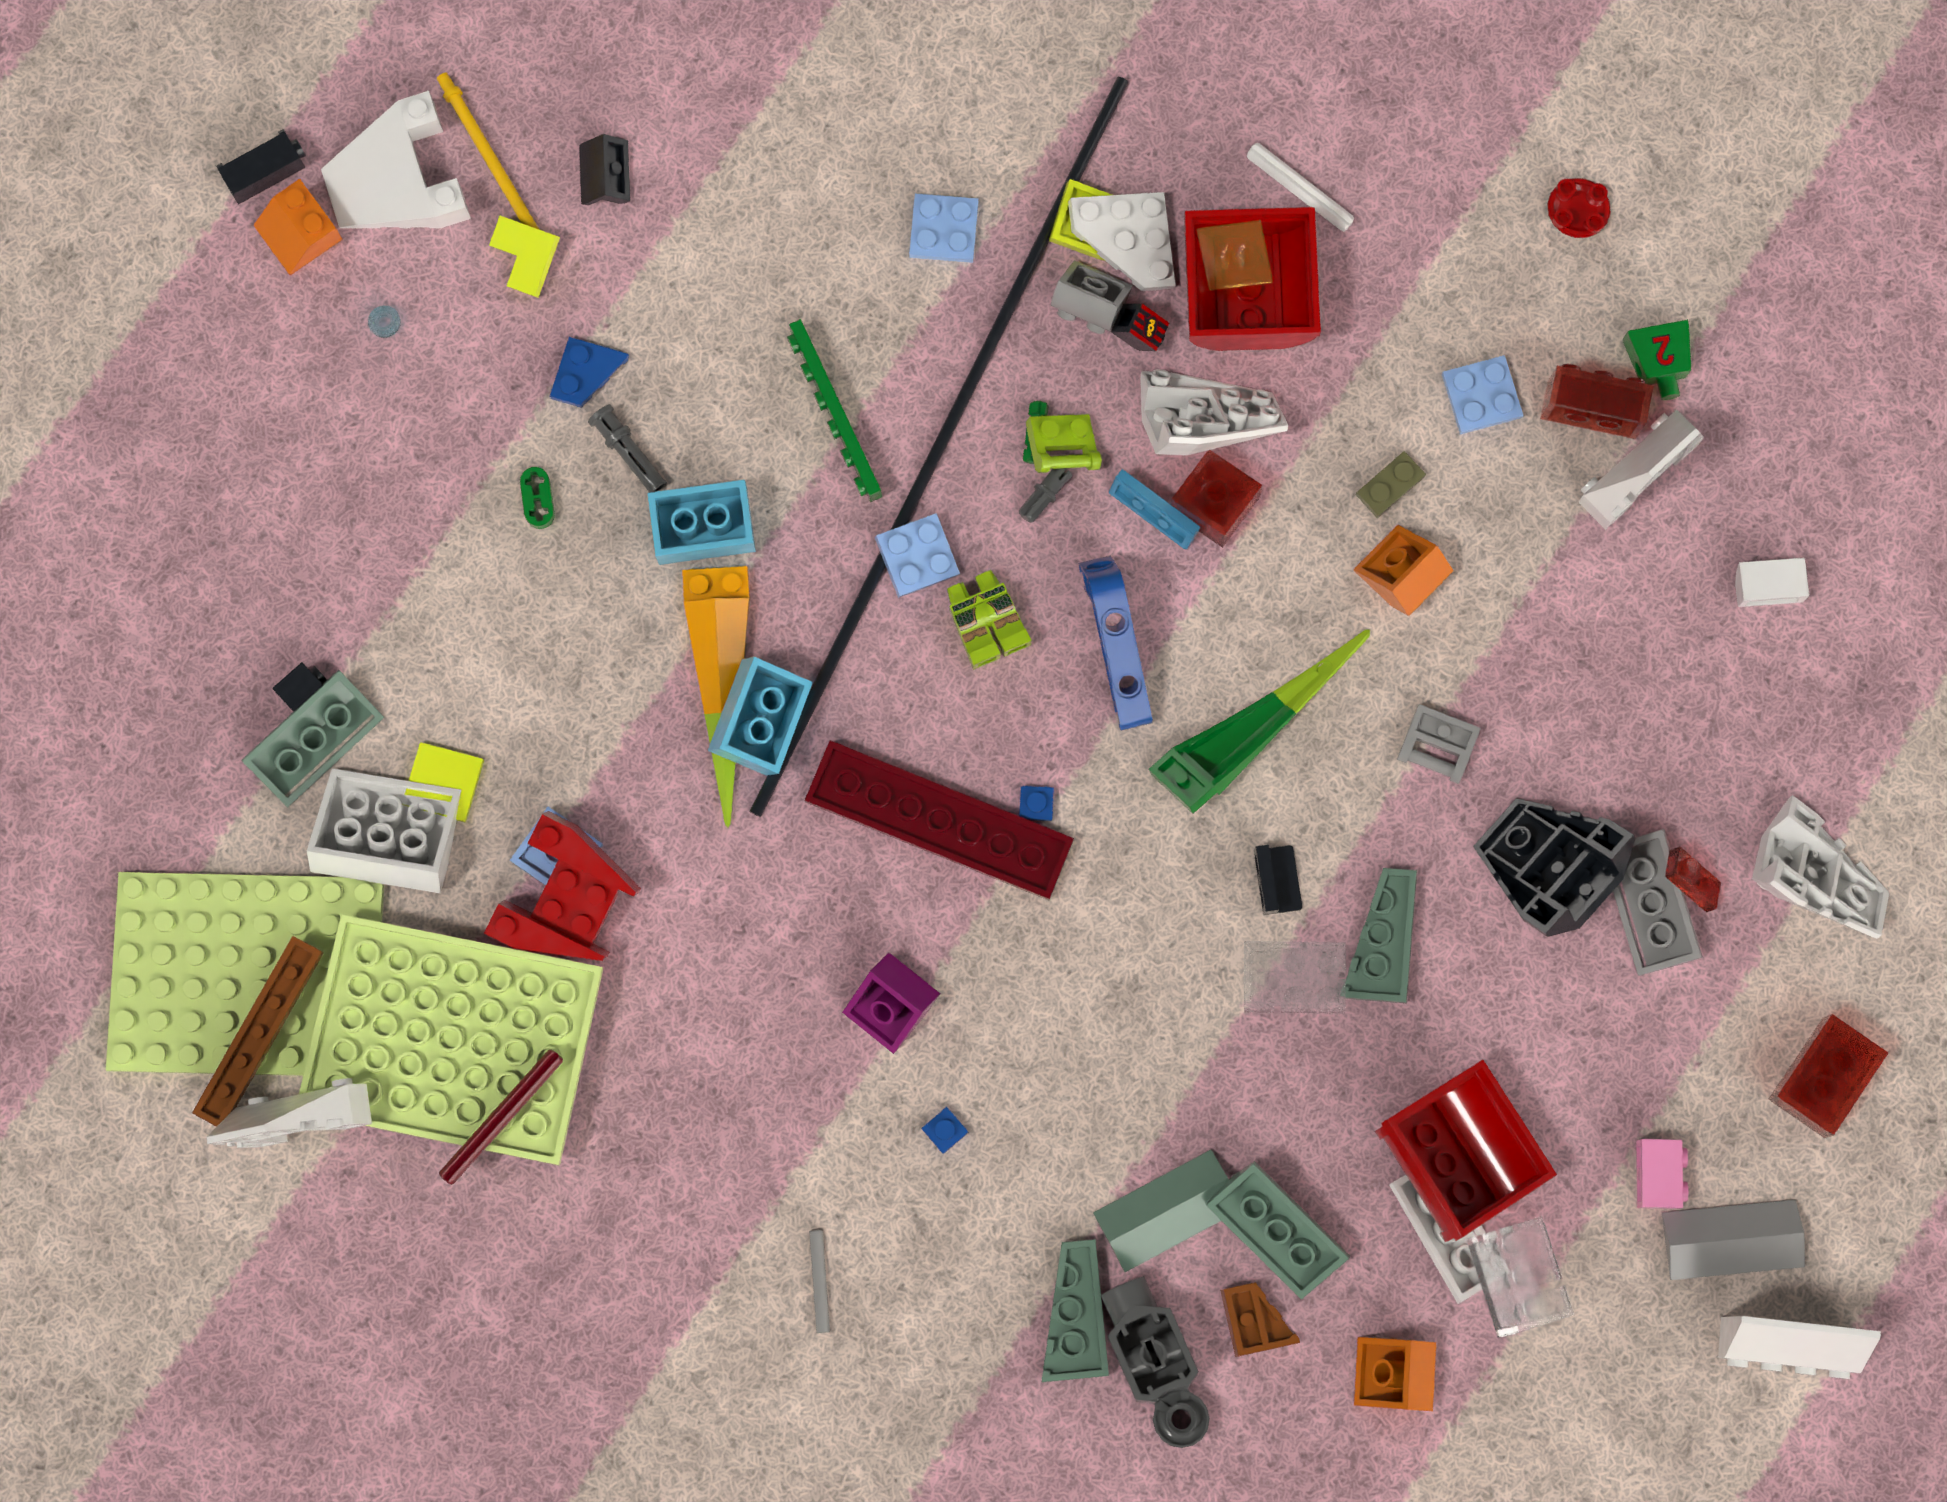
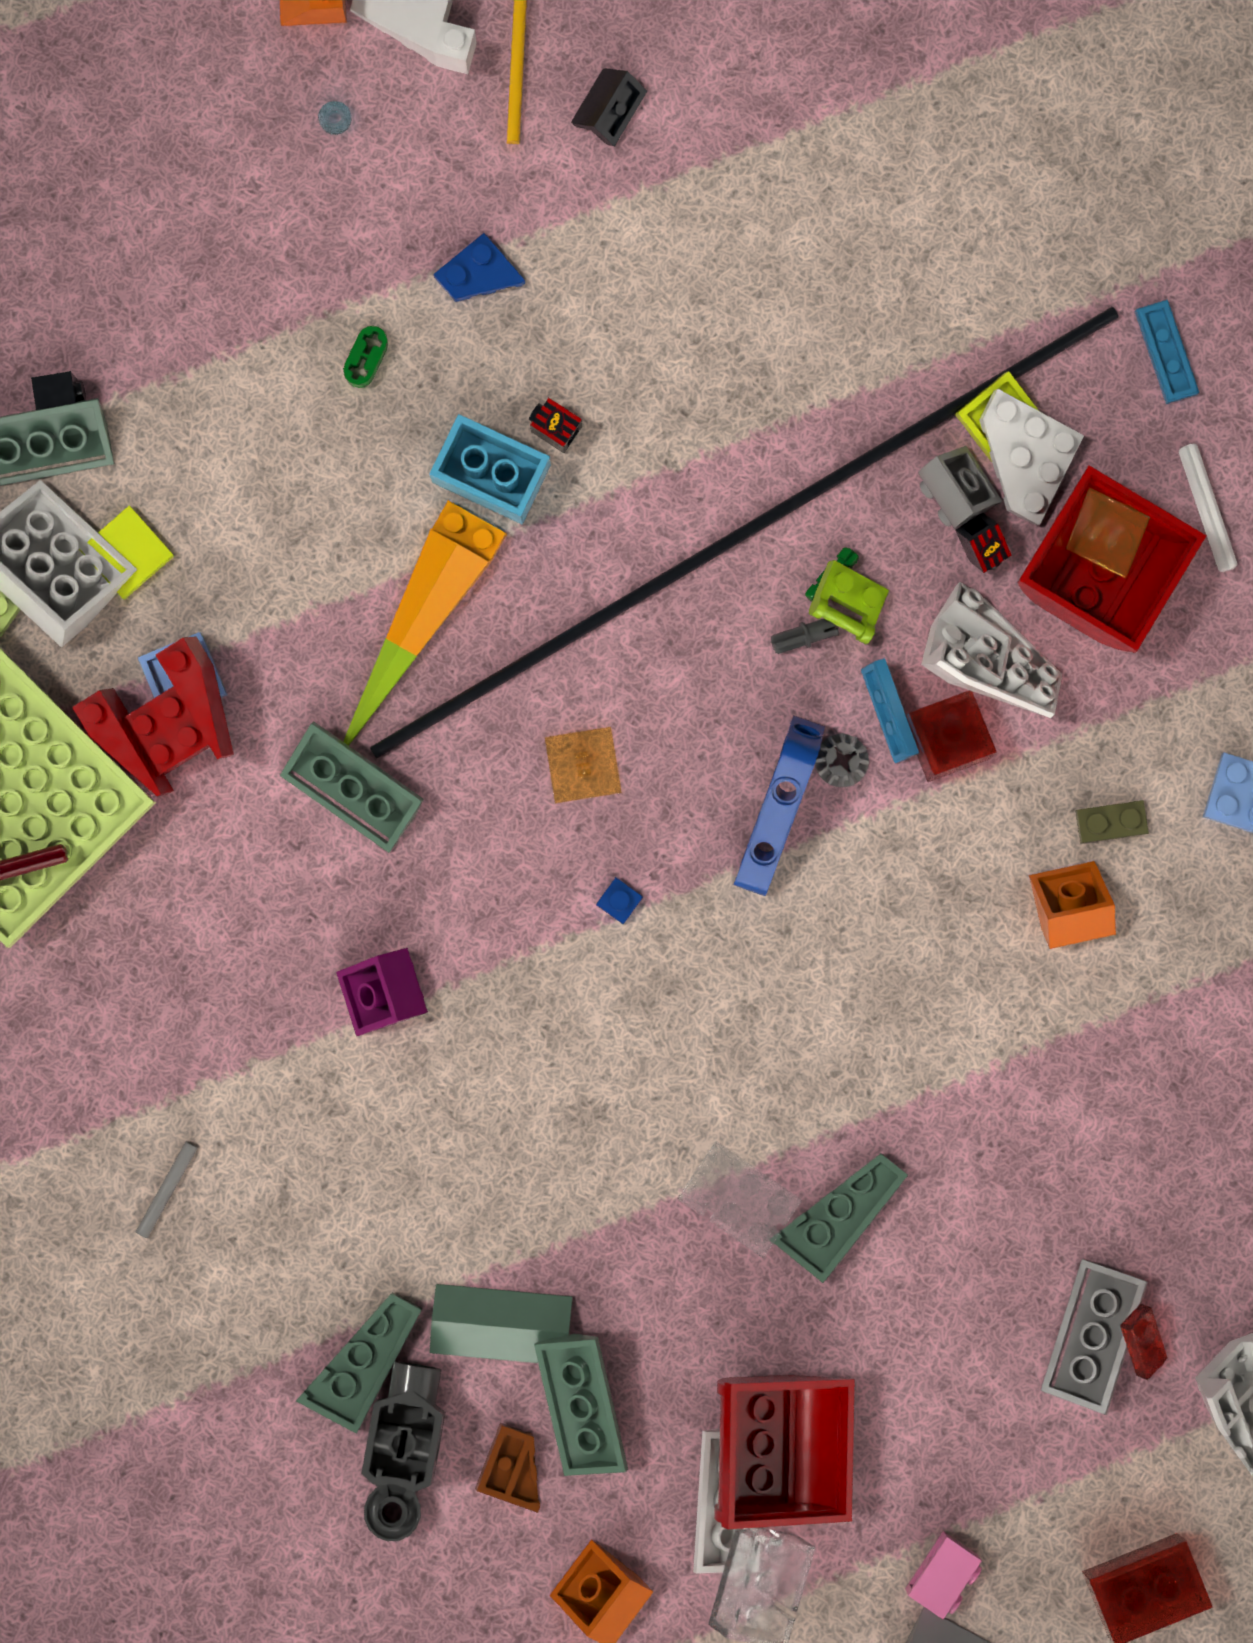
camera: 30 degrees right, 5 degrees up
(533, 252) = (501, 138): neon yellow tile -> none
(614, 440) = (468, 349): dark grey pin -> none
(729, 453) = (555, 424): none -> brick
(756, 849) = (354, 784): none -> sand green slope
(760, 716) = (429, 671): medium azure brick -> none
(839, 423) = (669, 431): green plate -> none
(917, 555) = (658, 618): light blue plate -> none
(933, 713) = (582, 765): none -> clear yellow piece
(939, 820) = (526, 861): dark red plate -> none
(943, 228) = (871, 344): light blue plate -> none
(944, 1130) = (356, 1131): blue plate -> none
(979, 612) = (683, 704): lime hips -> none
(1146, 588) = (838, 775): none -> light grey gear
(1185, 85) = (1166, 351): none -> dark azure tile
(1218, 755) = (803, 961): green plate -> none
(1277, 879) = (783, 1102): black panel -> none
(1441, 733) = (1011, 1070): light grey plate -> none
(1555, 863) = (1031, 1249): black wedge -> none

